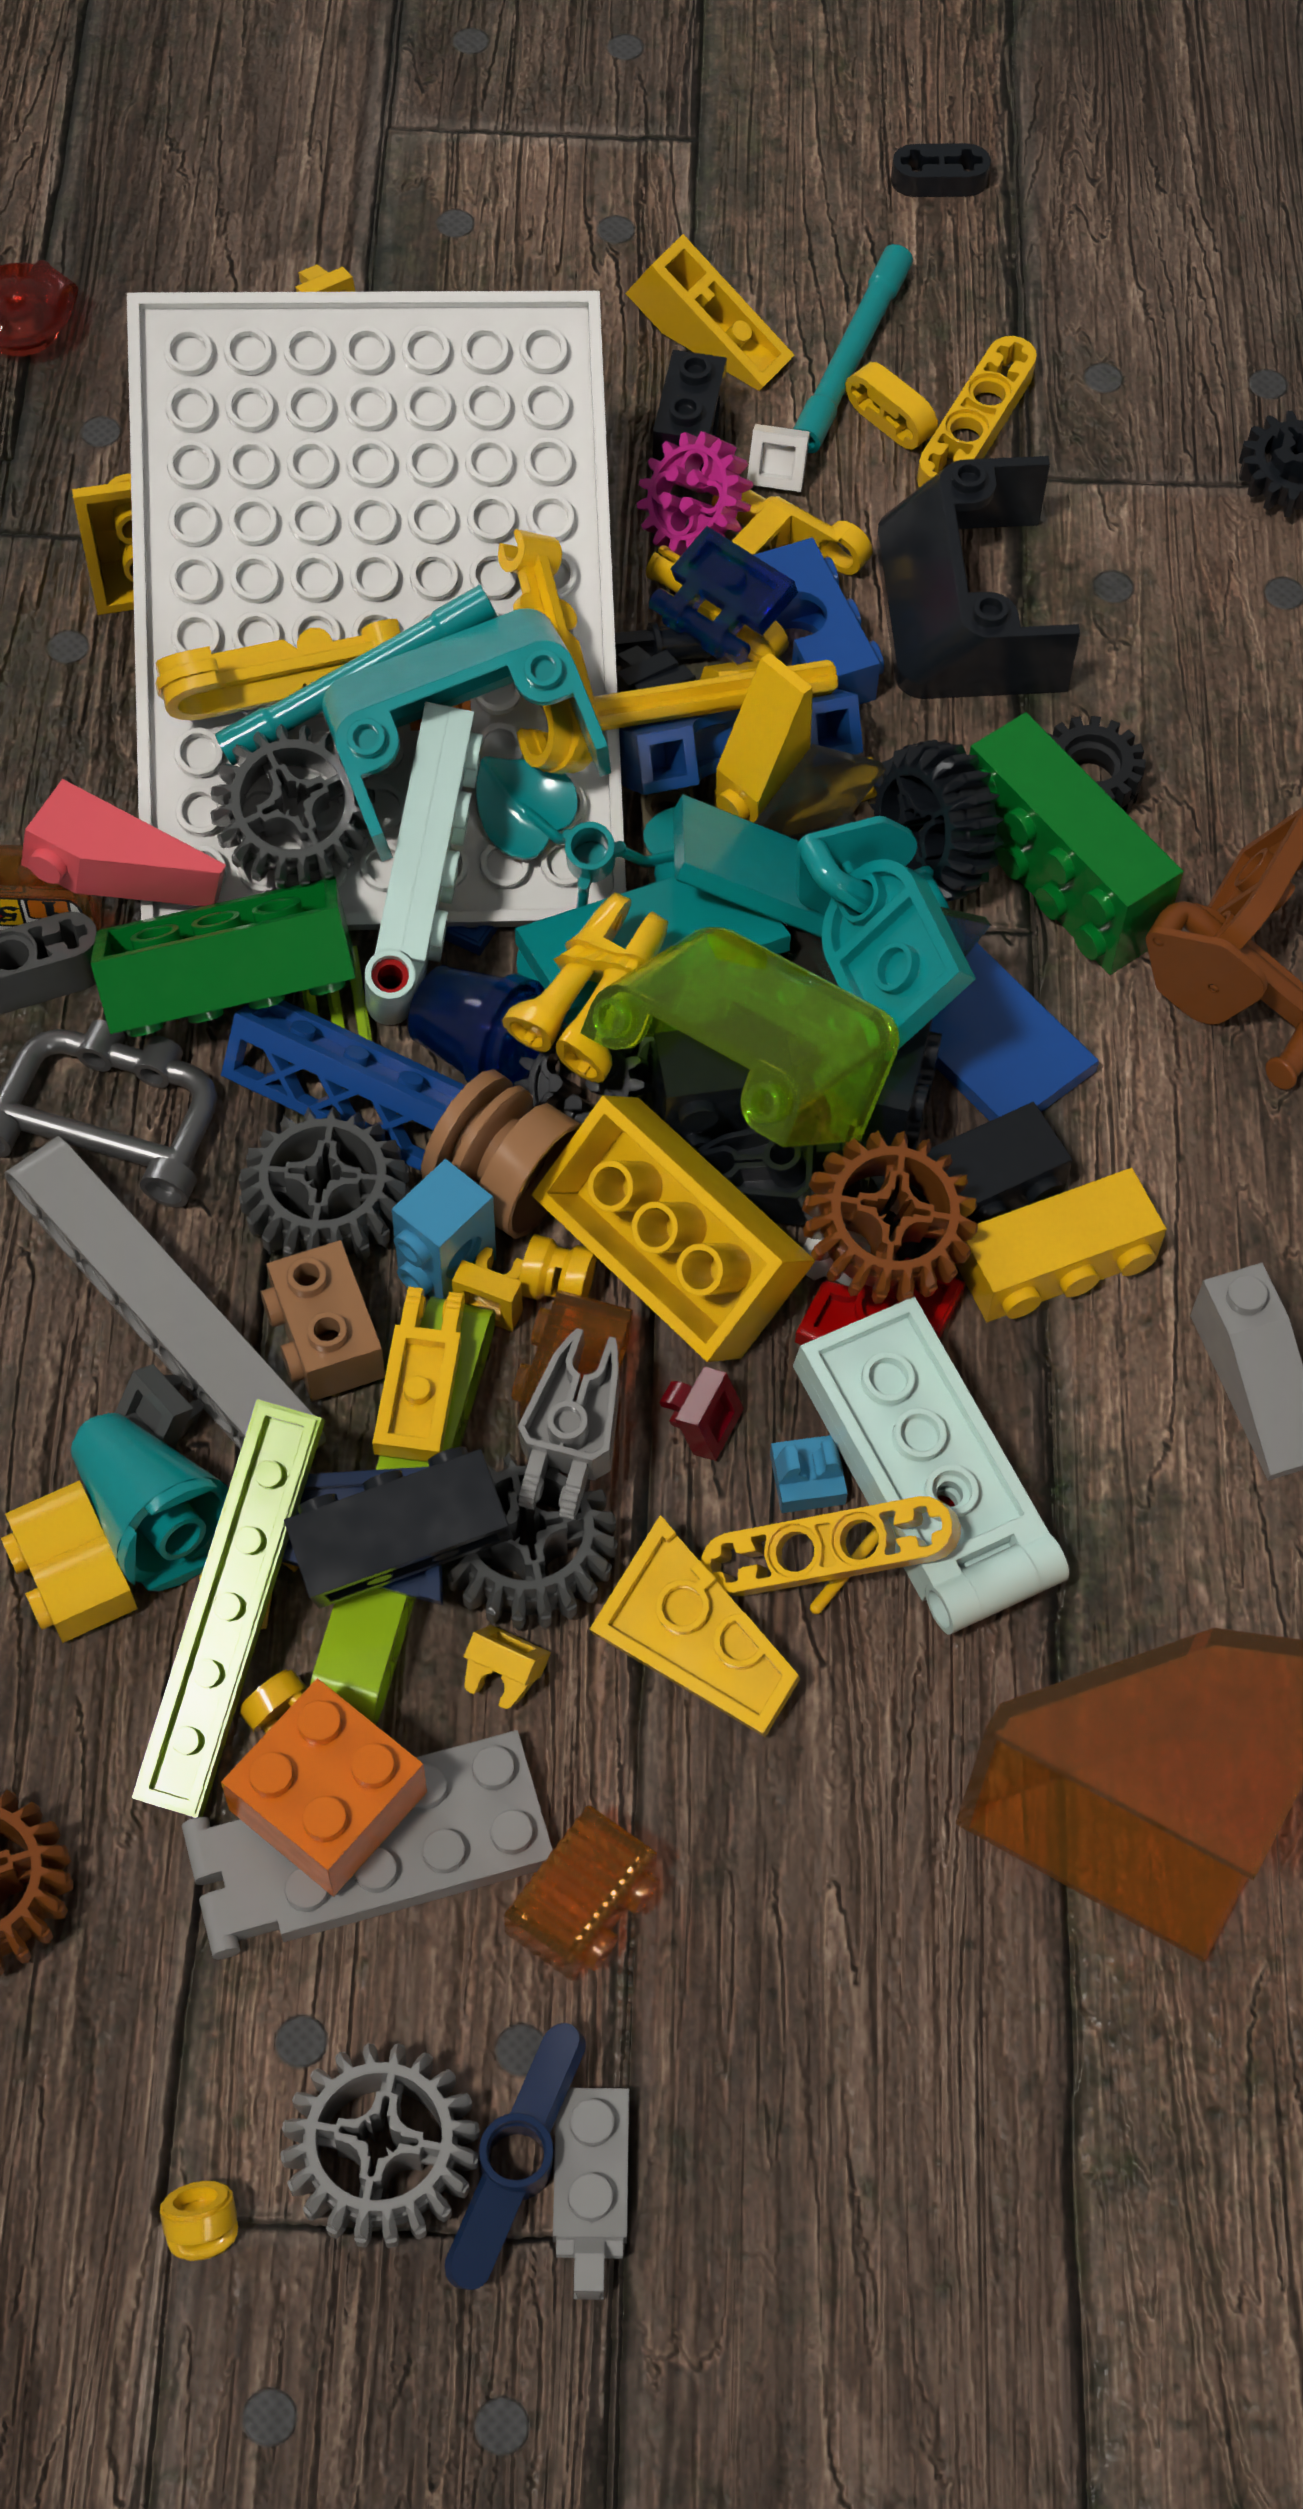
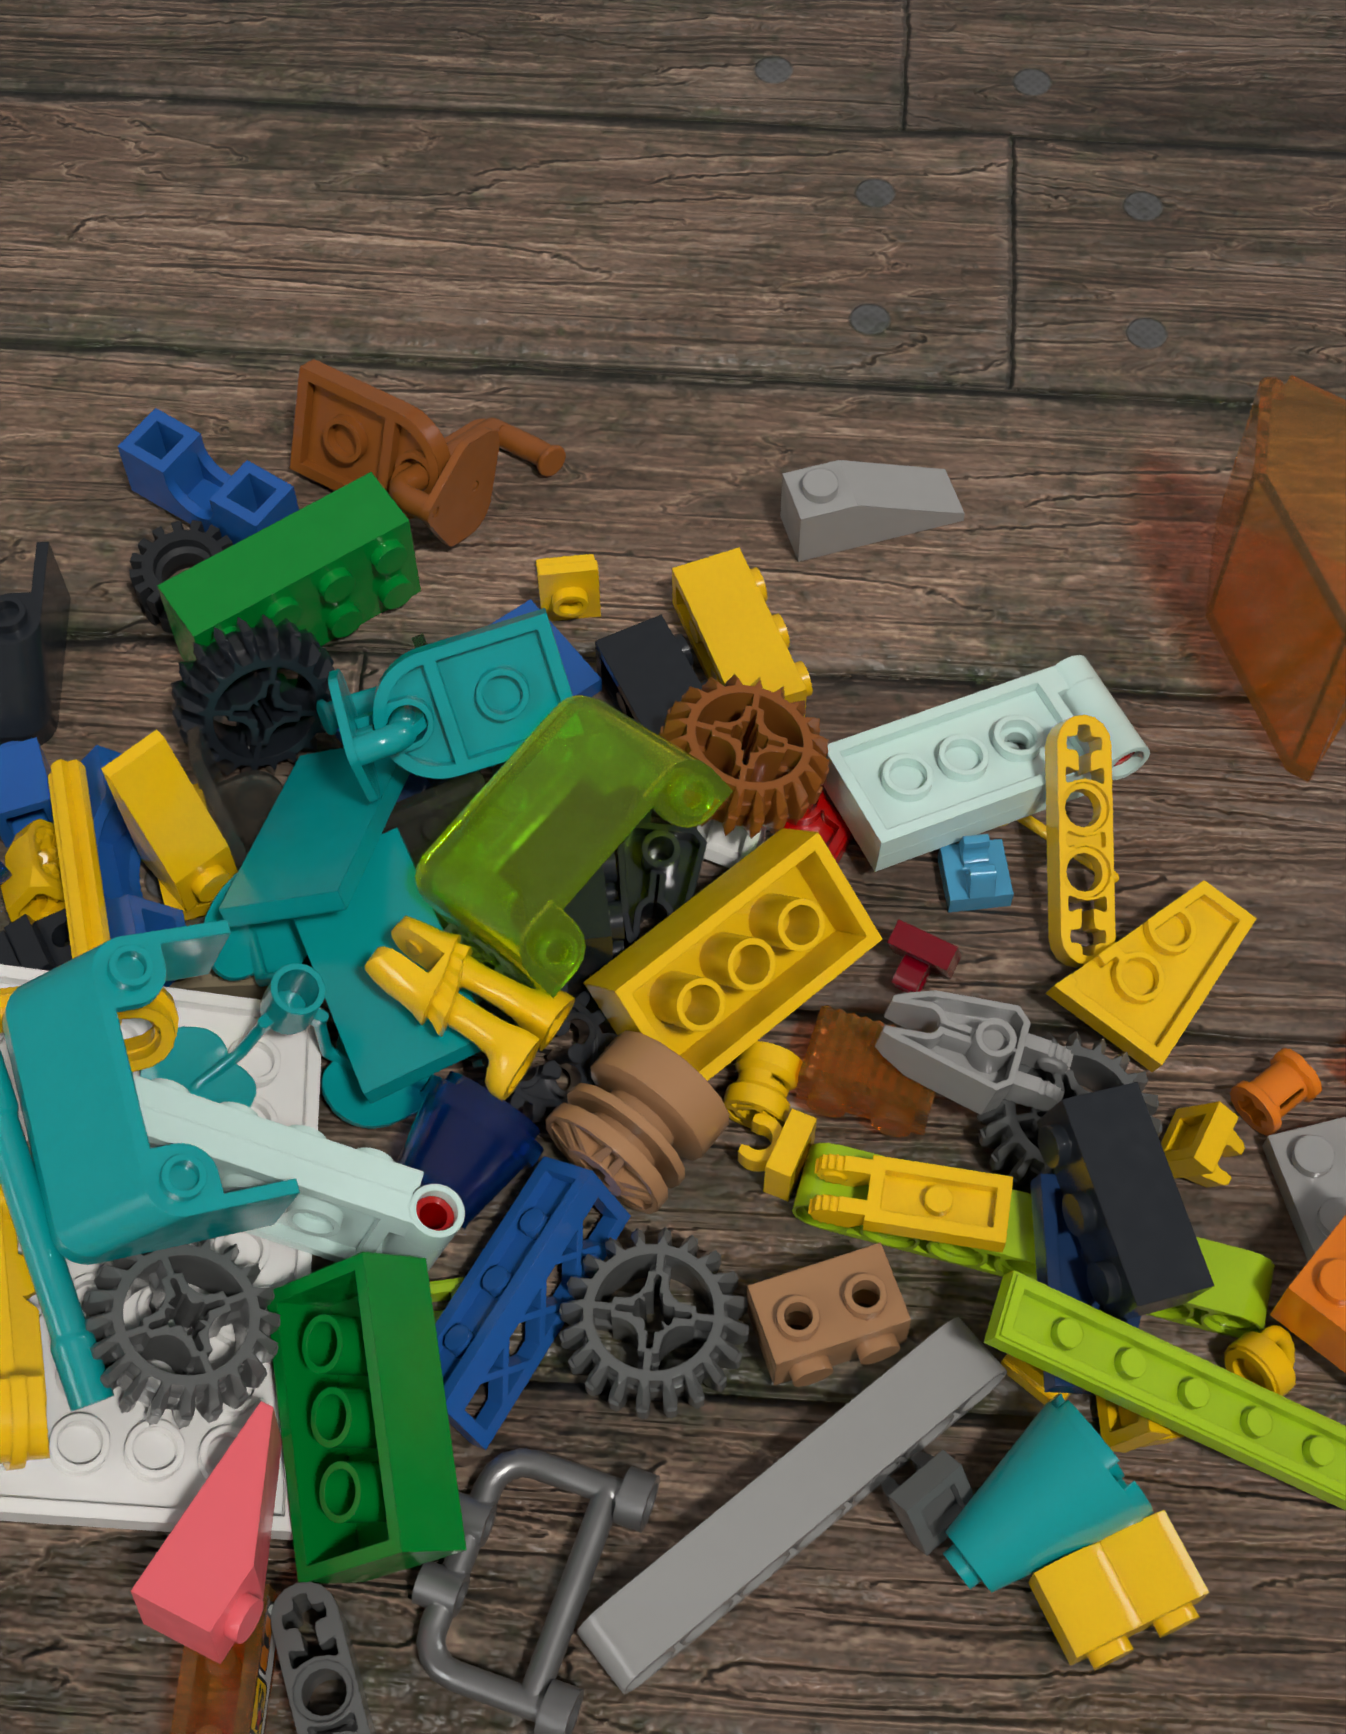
camera: 85 degrees left, 0 degrees up
(439, 1226) = (735, 1183): dark azure brick -> none
(565, 1740) = (1275, 1091): none -> orange bush
(1102, 1089) = (569, 587): none -> yellow bracket
(1202, 753) = (176, 472): none -> blue arch

